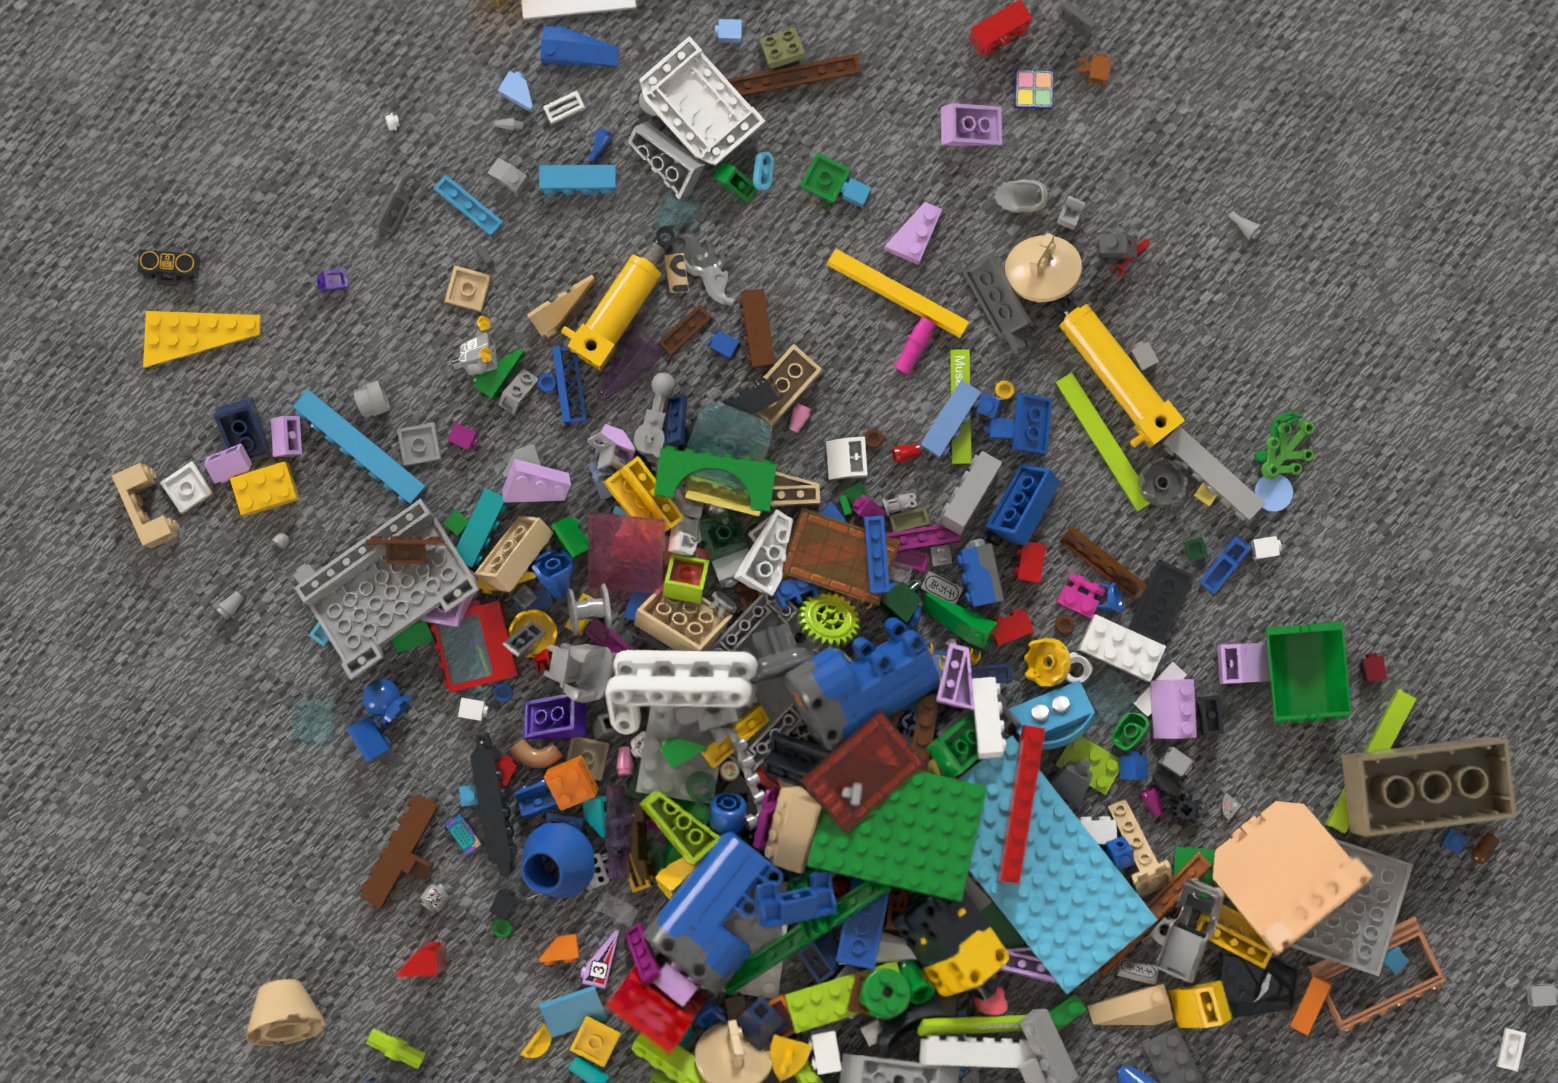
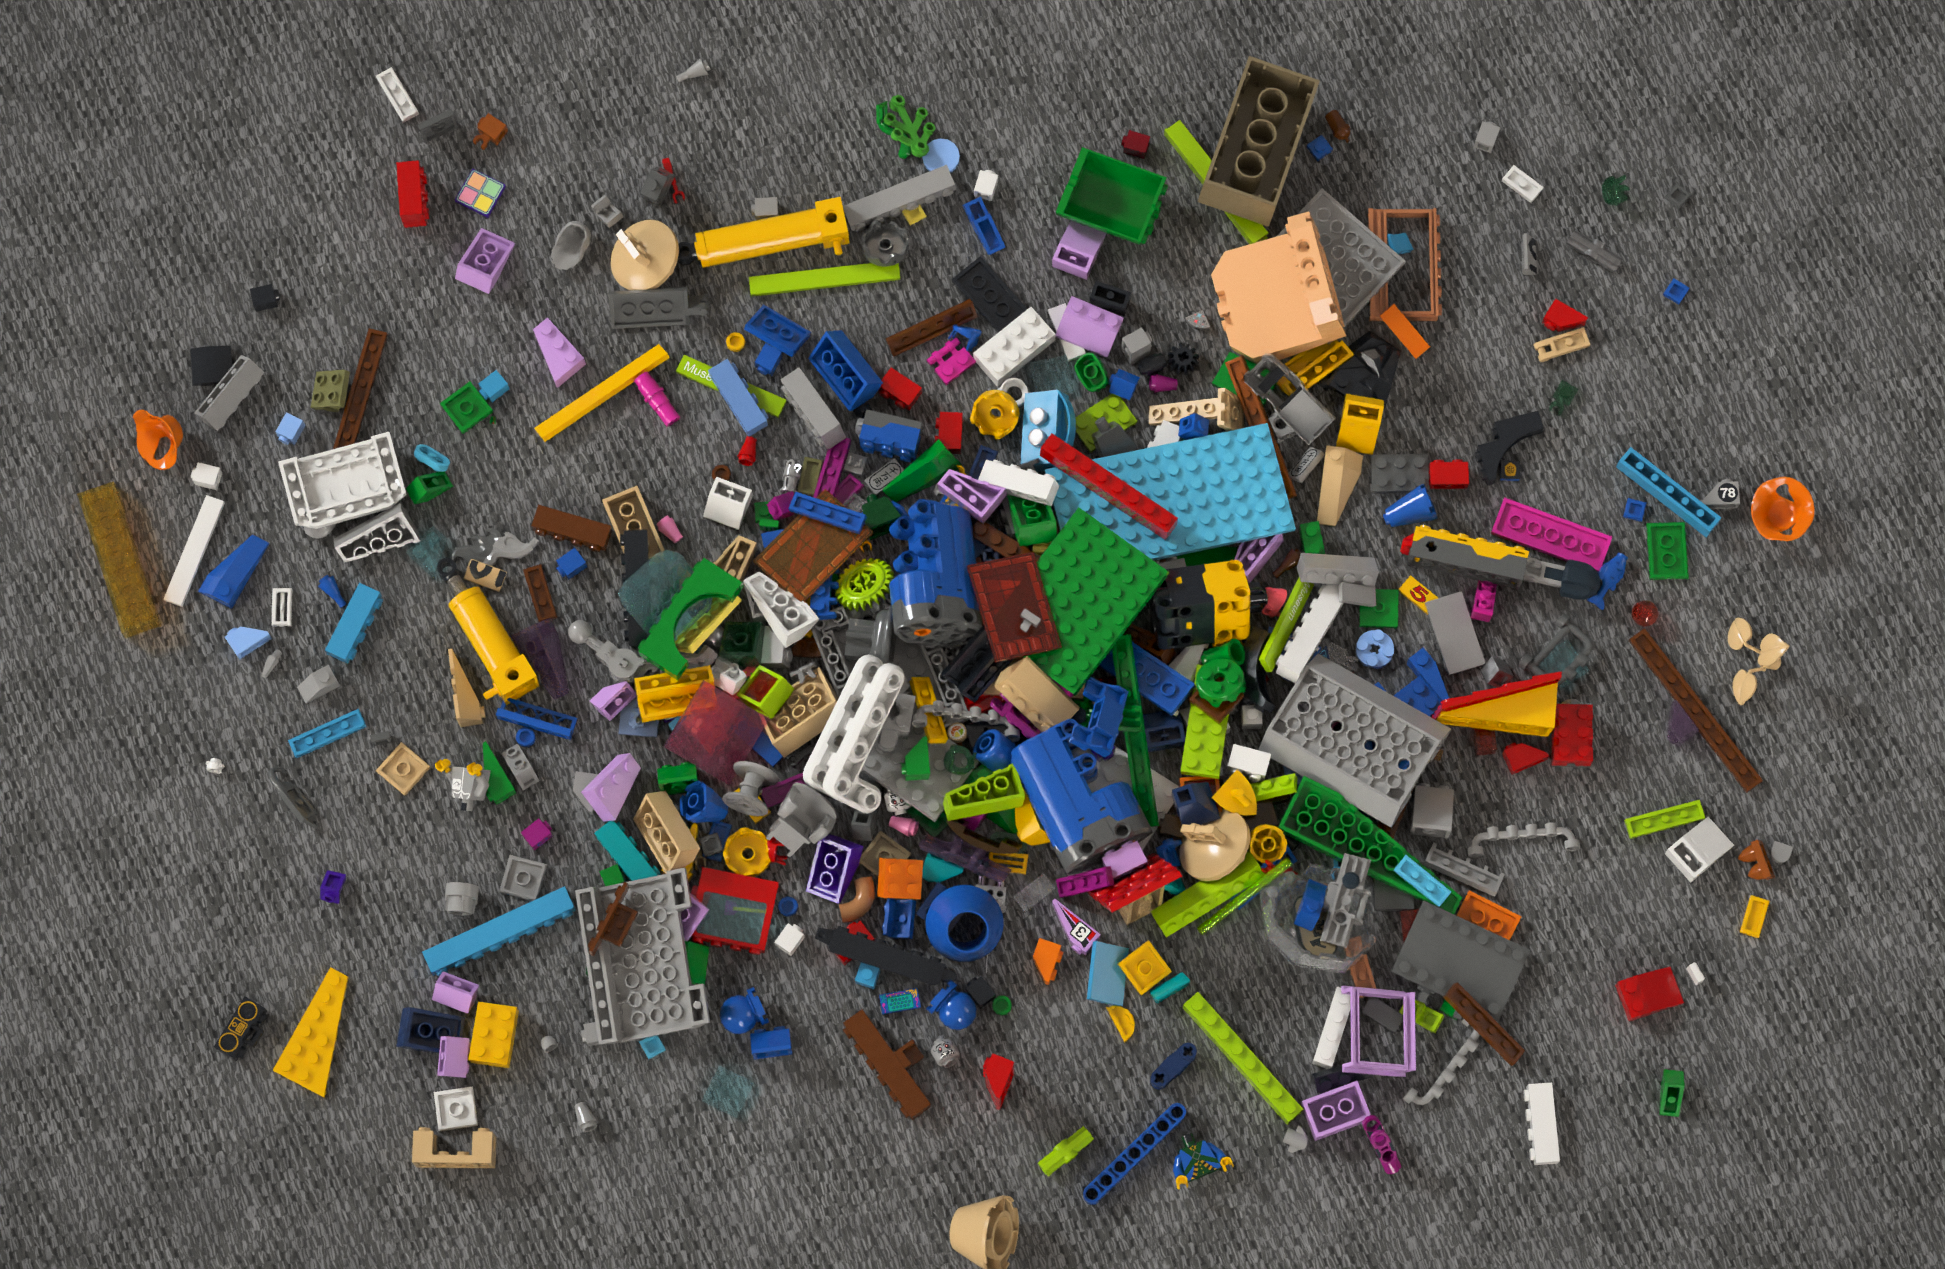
camera: 65 degrees left, 10 degrees down
(477, 887) = (954, 1008): none -> blue tile
(525, 640) = (750, 855): dark grey slope -> none
(607, 451) = (616, 707): light grey bracket -> none
(675, 421) = (618, 635): dark blue tile -> none
(990, 405) = (742, 358): blue brick -> none
(1039, 999) = (1289, 562): none -> reddish brown cone
(1064, 624) = (969, 386): reddish brown tile -> none
(1195, 548) = (957, 244): dark green plate -> none

